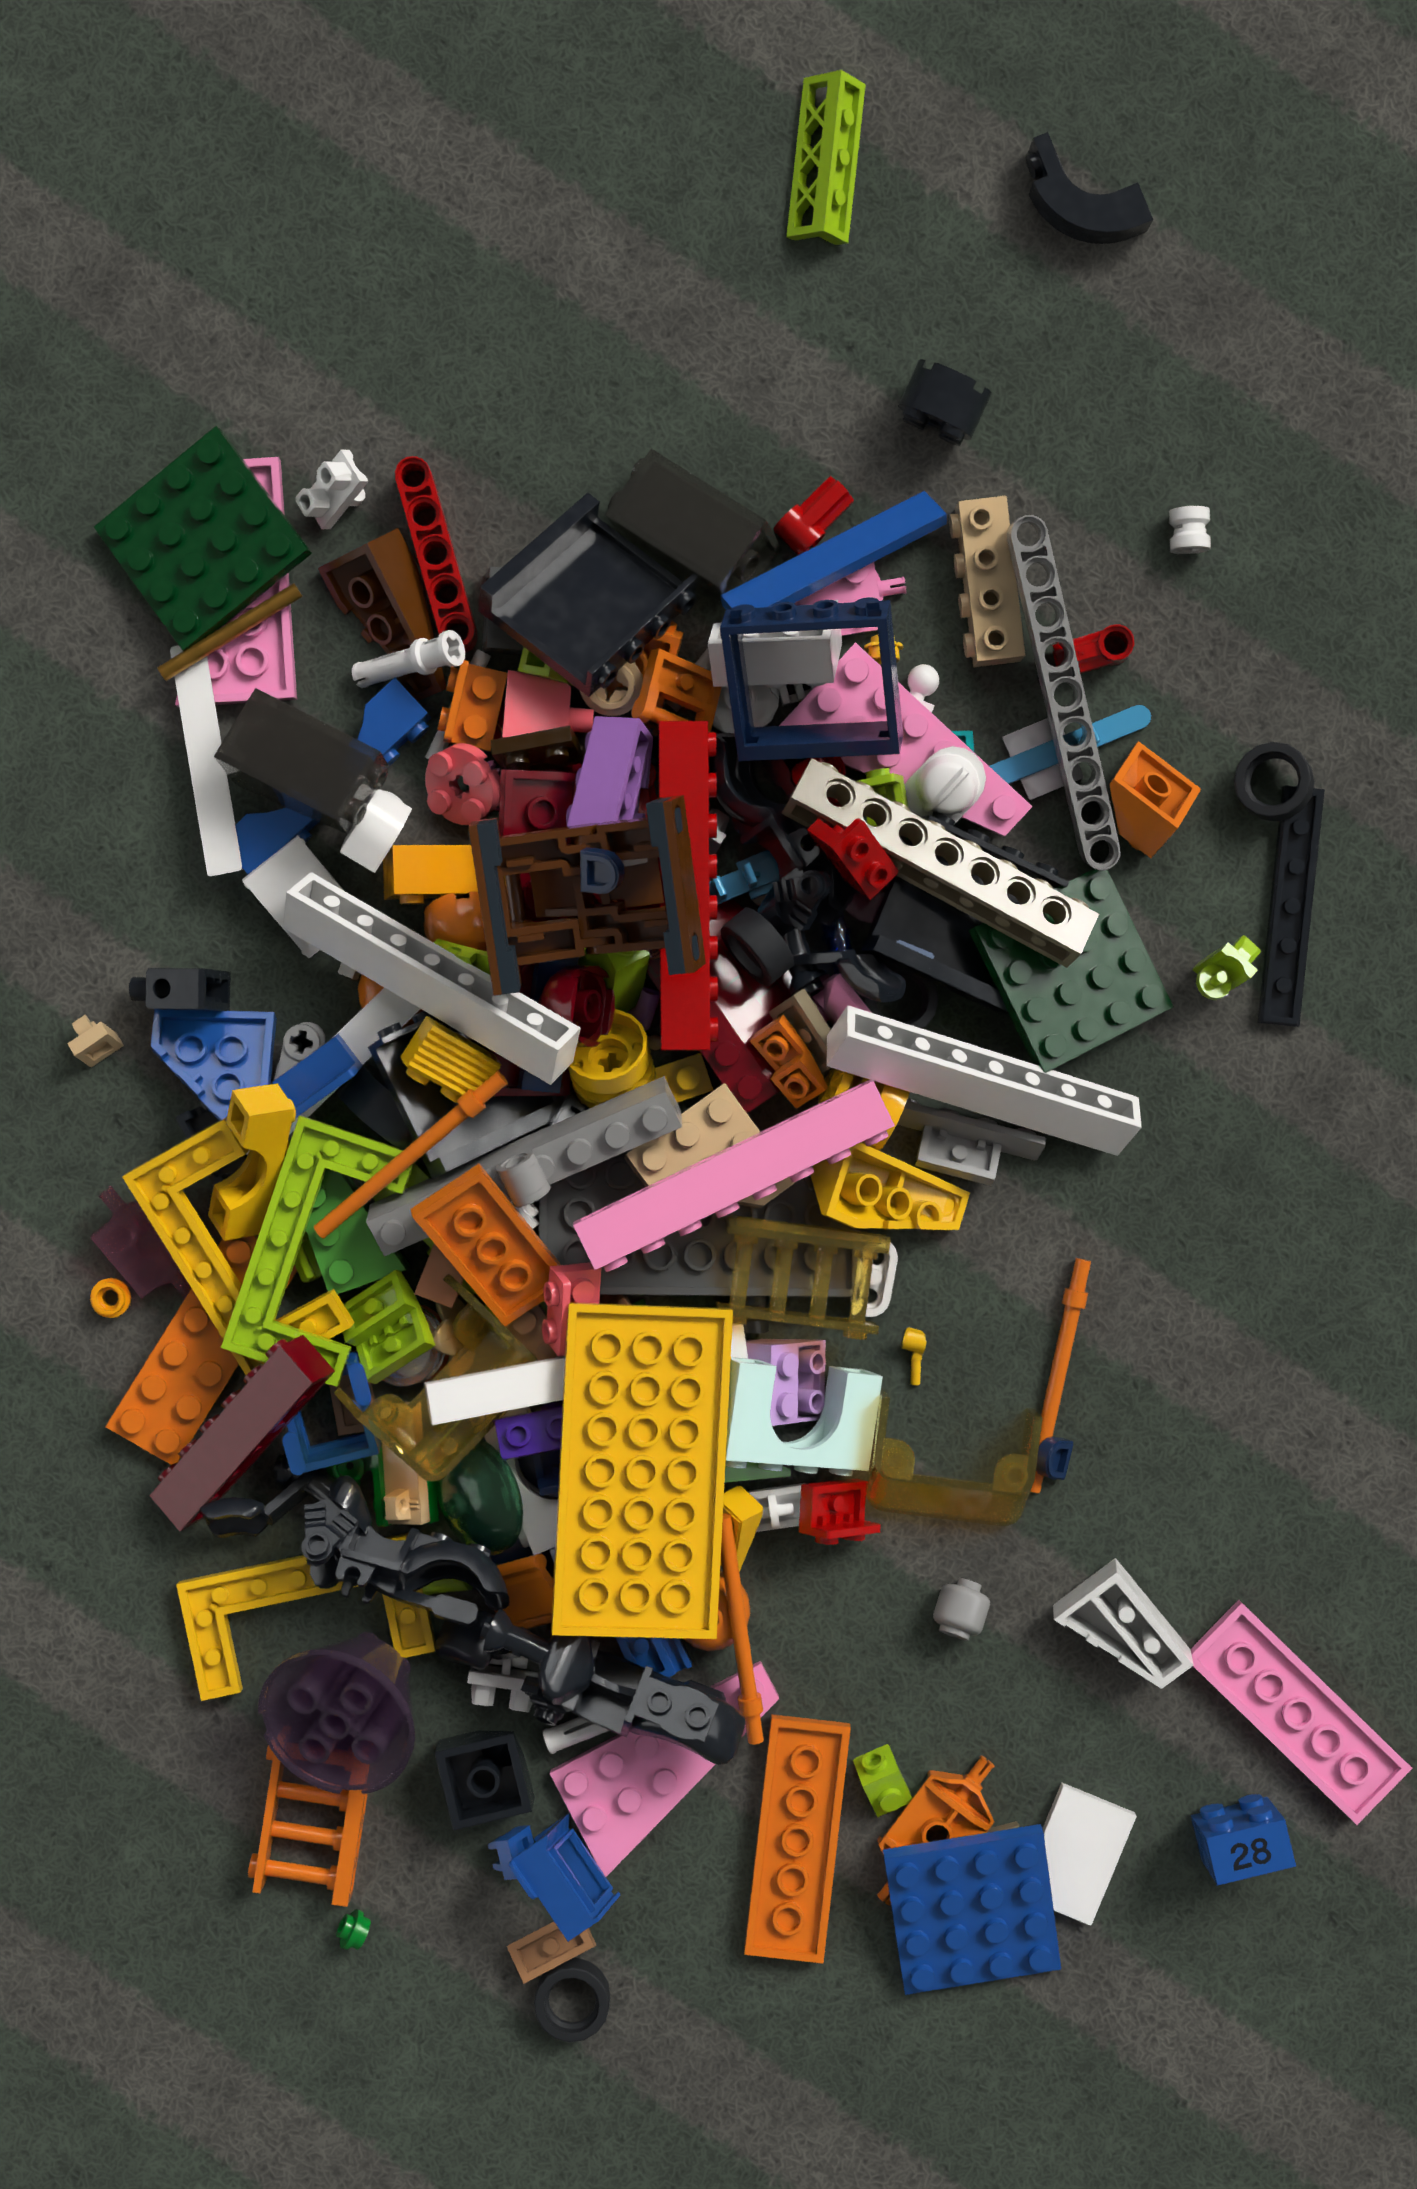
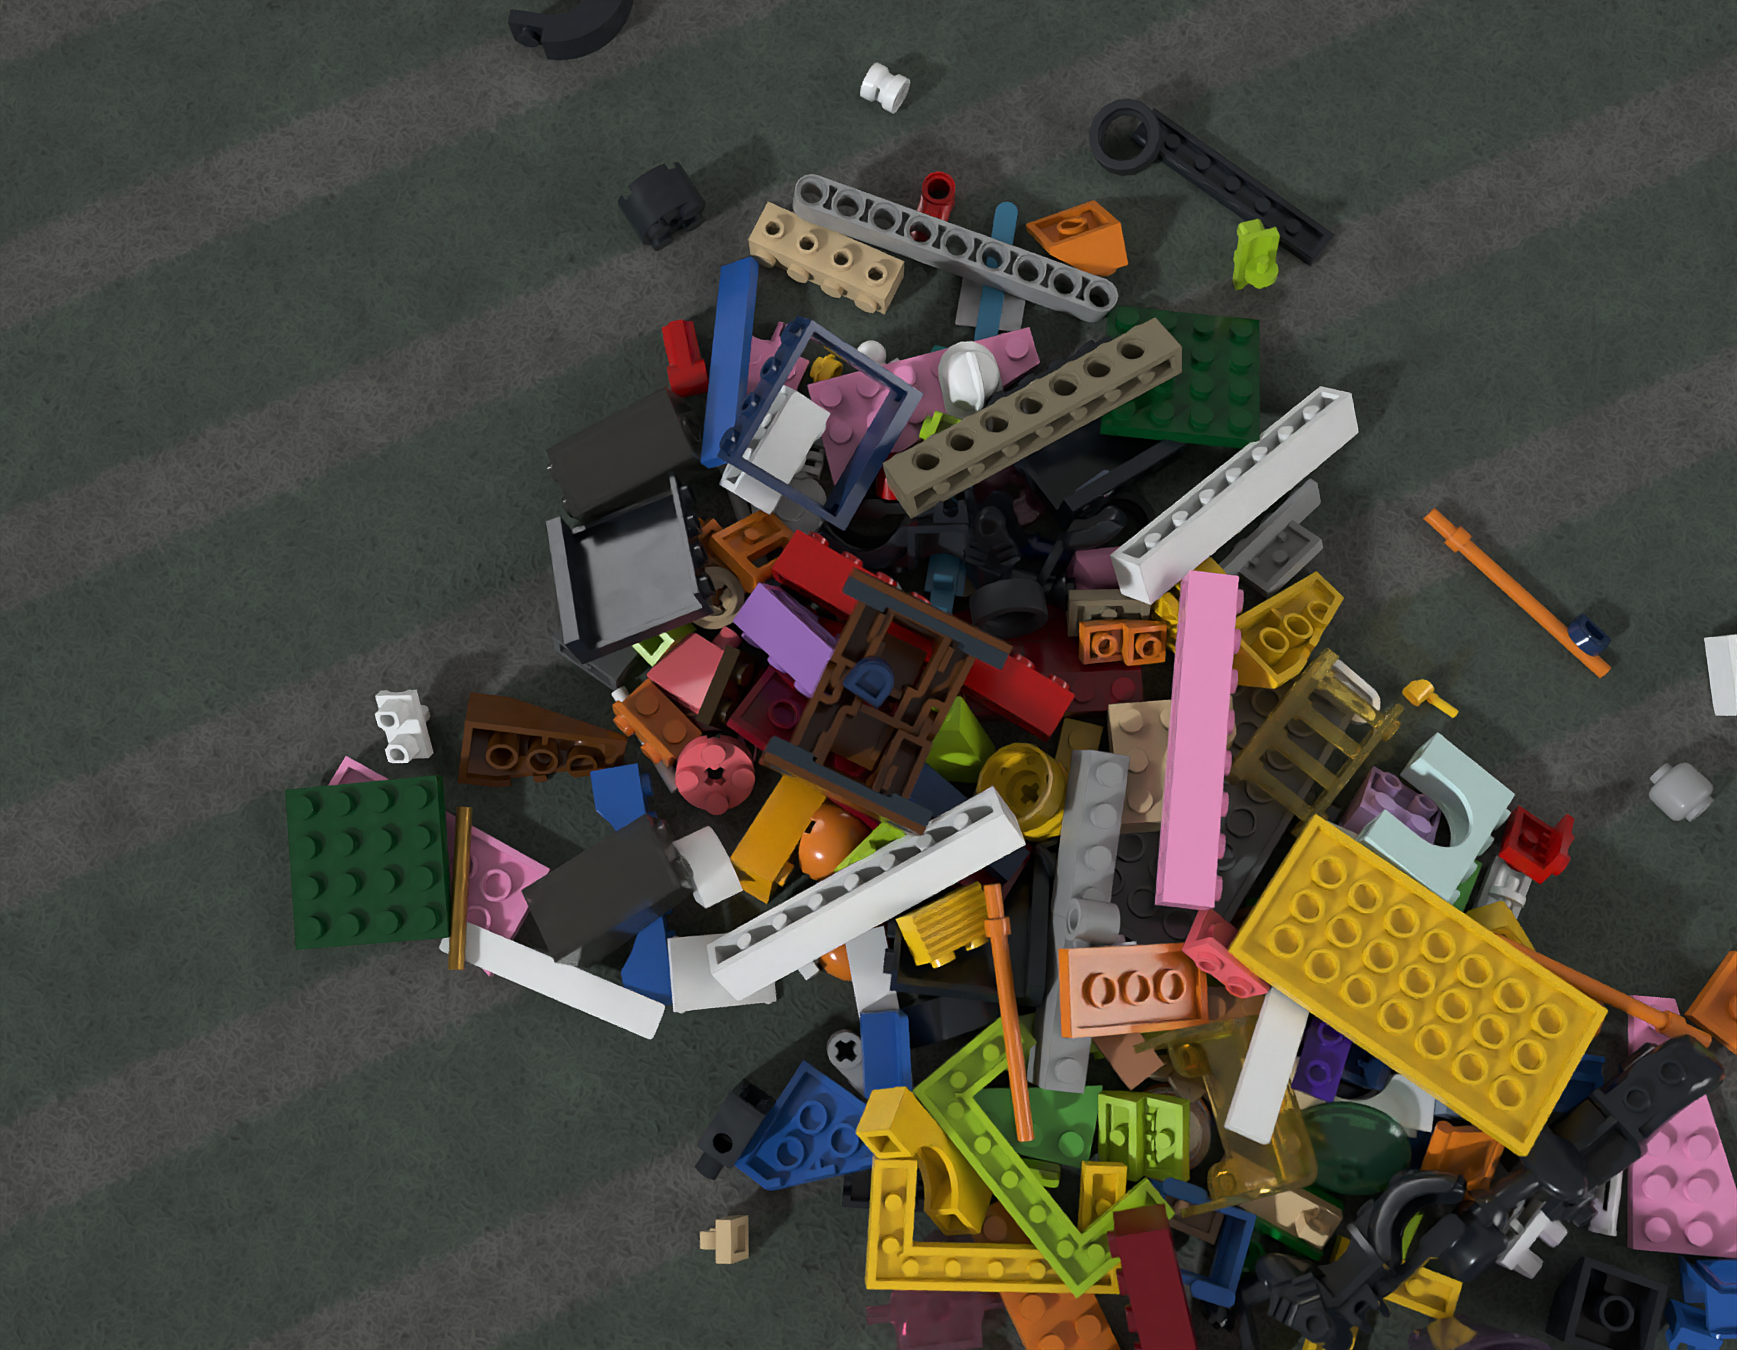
camera: 55 degrees left, 10 degrees down
(422, 657) = (588, 737): white pin -> none
(433, 536) = (497, 668): red beam -> none
(581, 998) = (961, 776): dark red cylinder -> none
(646, 1006) = (998, 733): medium lavender arm -> none
(833, 154) = (419, 175): lime fence -> none
(855, 855) = (987, 476): red bracket -> none
(896, 1489) = (1545, 775): clear yellow windscreen -> none

